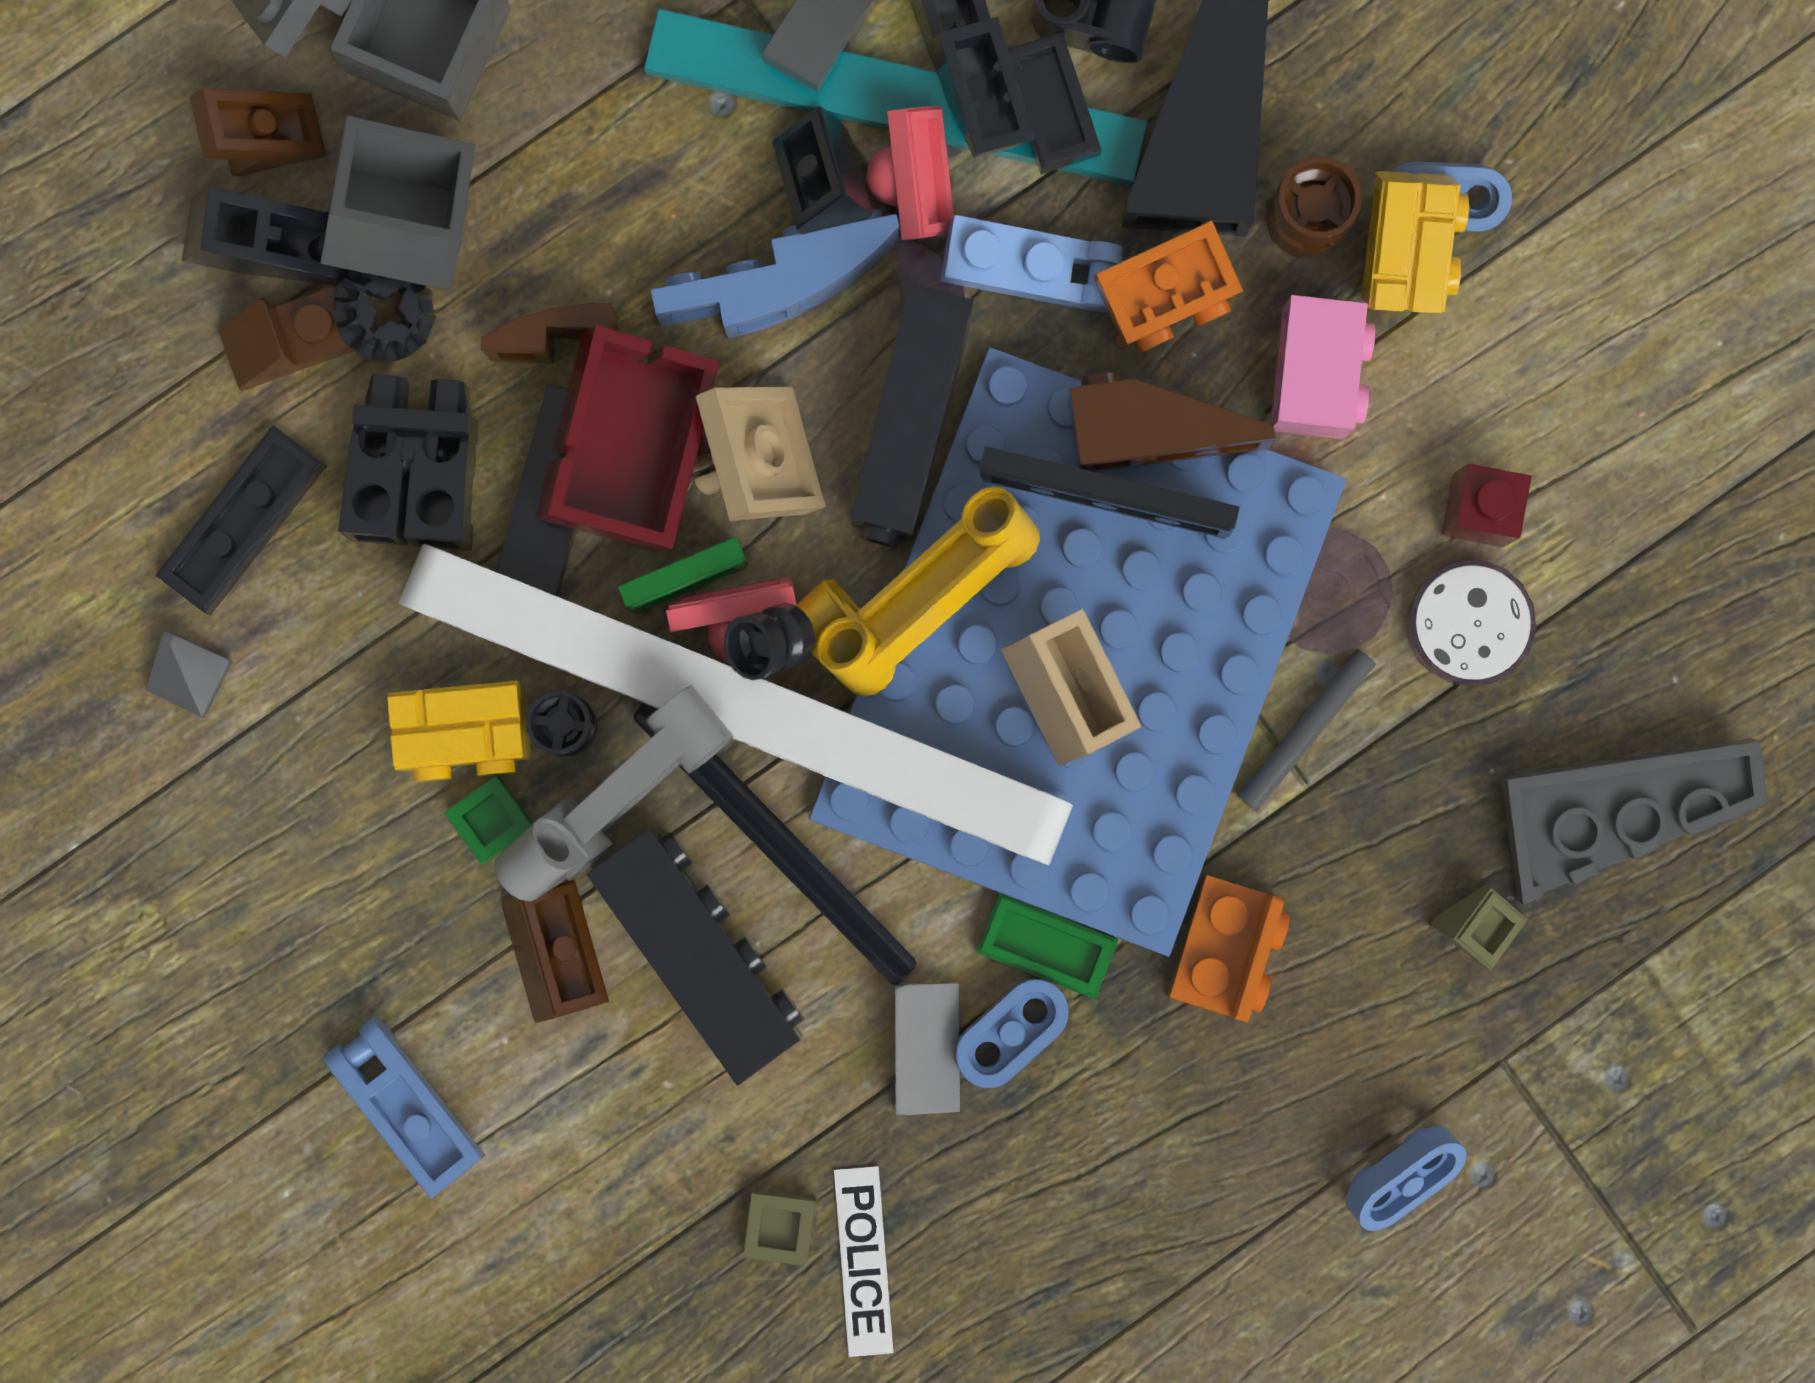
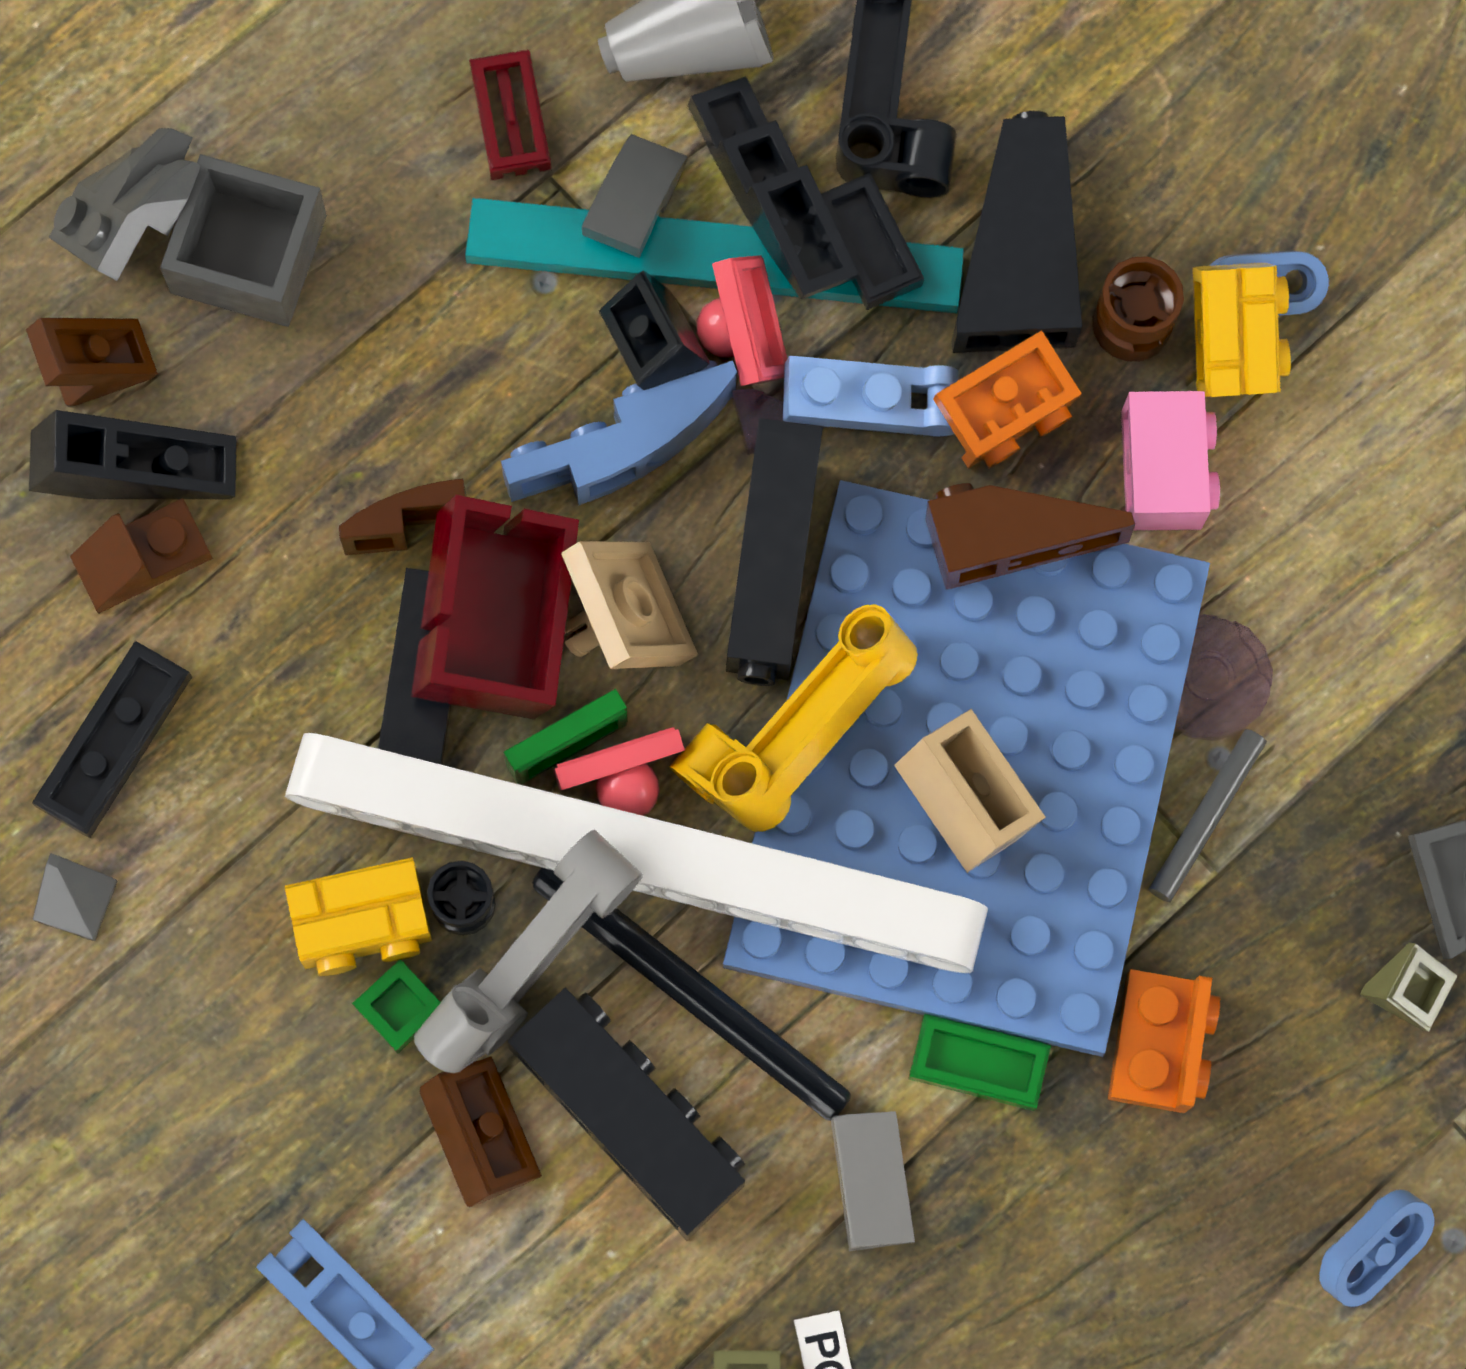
camera: 10 degrees left, 10 degrees down
(390, 341) = (208, 519): black gear -> none
(398, 203) = (243, 406): dark grey piece -> none
(411, 467) = (273, 642): black hips -> none
(769, 641) = (663, 782): black wheel -> none
(1014, 1035) = (955, 1153): medium blue plate -> none
(1108, 493) = (980, 600): black tile -> none
(1471, 623) = (1354, 690): white tile -> none
(1486, 505) = (1350, 572): dark red brick -> none

